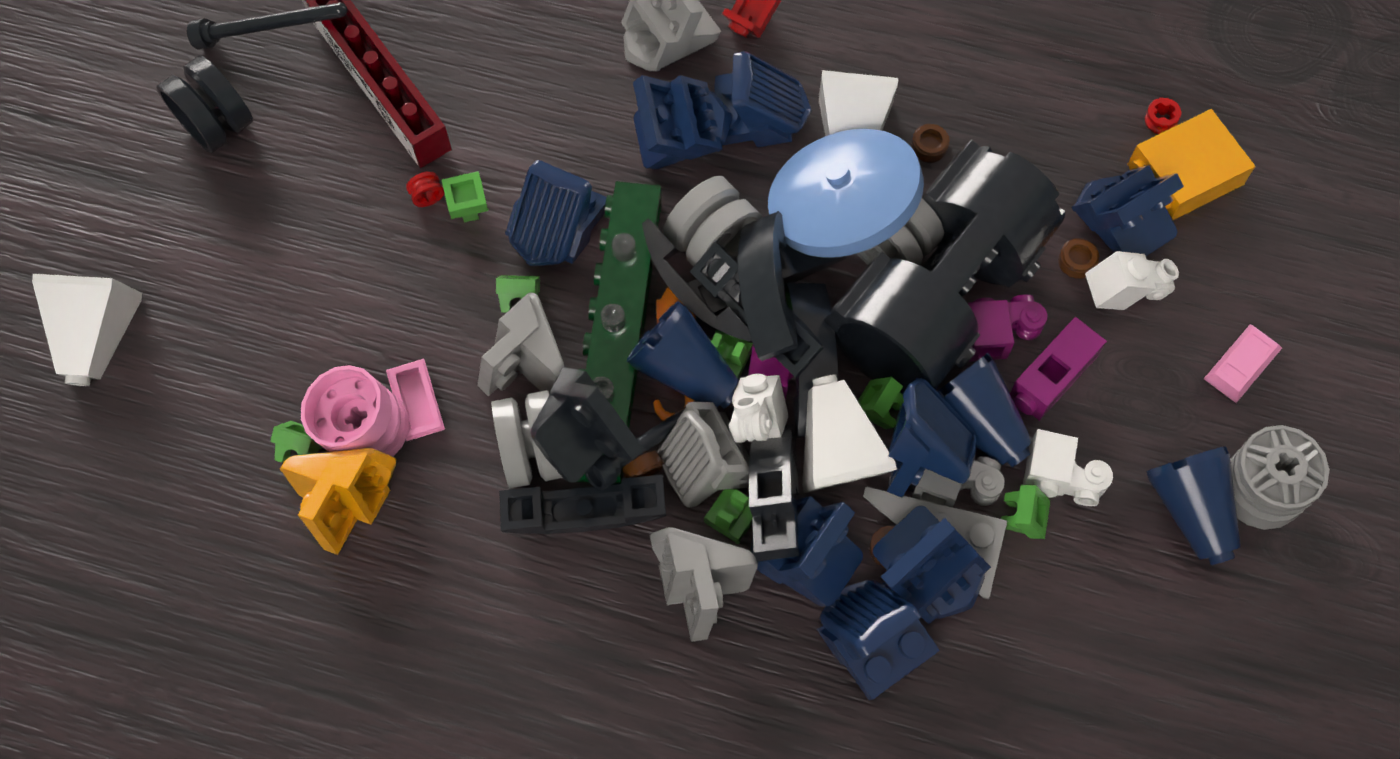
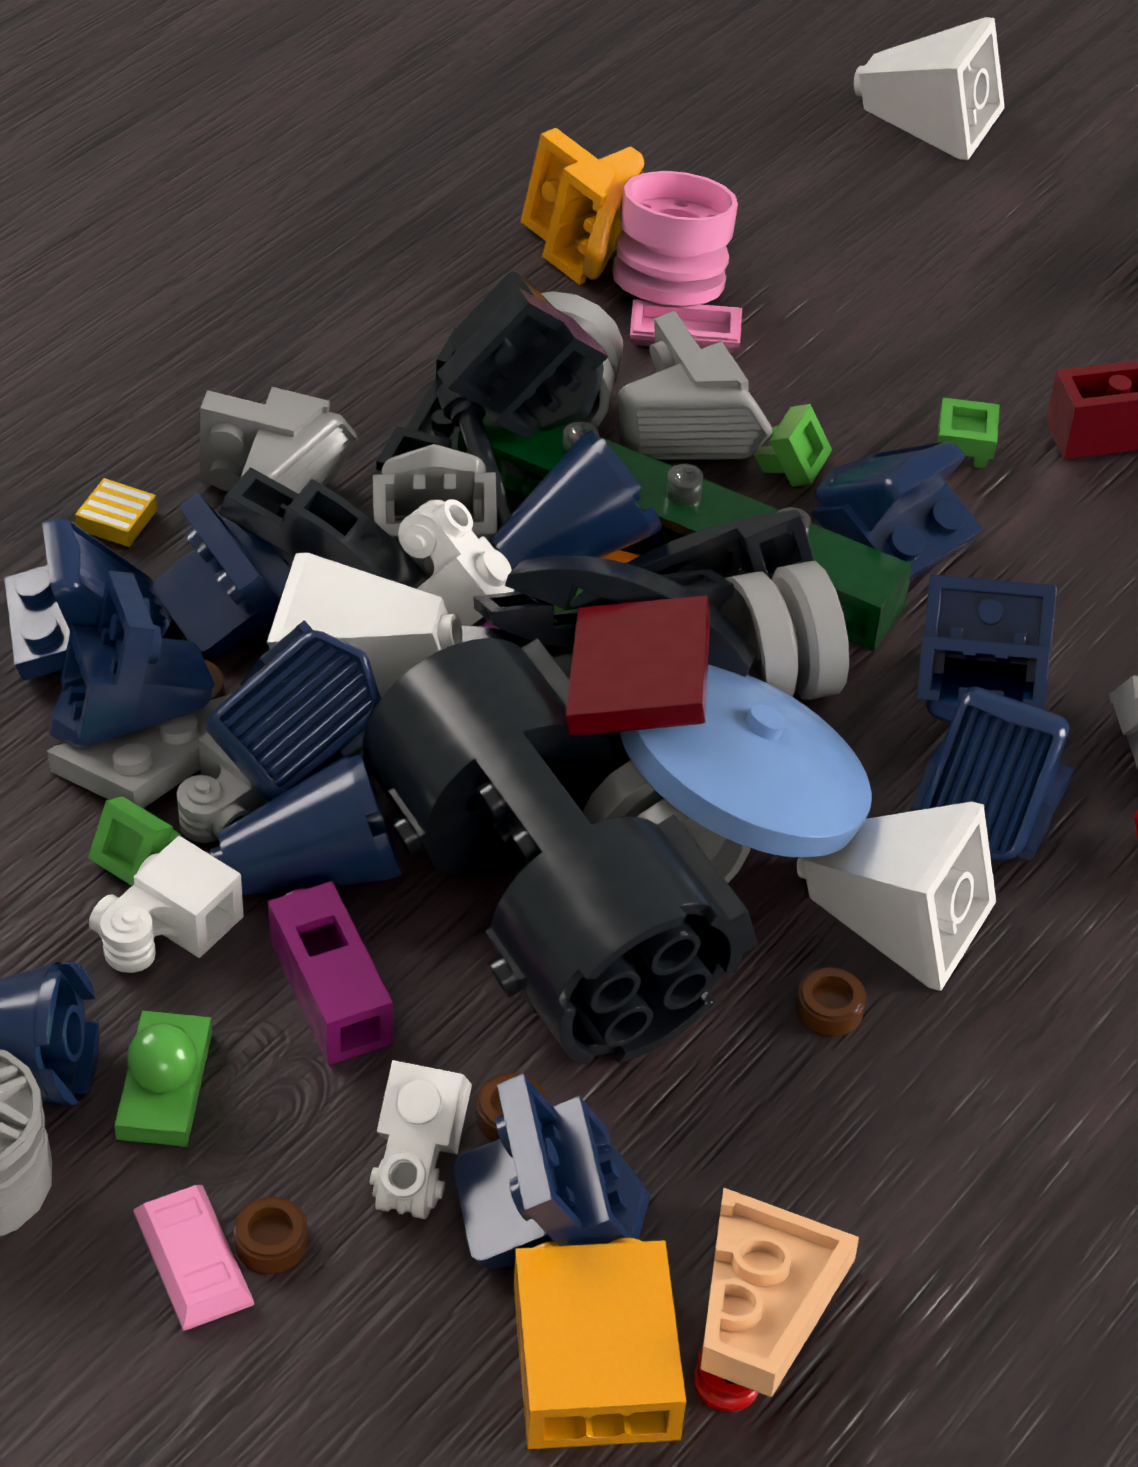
camera: 110 degrees right, 20 degrees down
(425, 189) = (1009, 400): red bush -> none
(766, 673) = (116, 512): none -> yellow tile
(841, 239) = (639, 666): none -> dark red tile
(999, 319) = (441, 930): magenta brick -> none
(1124, 105) = (768, 1289): none -> light nougat wing
(1158, 423) = (163, 1078): none -> bright green tile
(1212, 332) = (270, 1235): none -> reddish brown tile

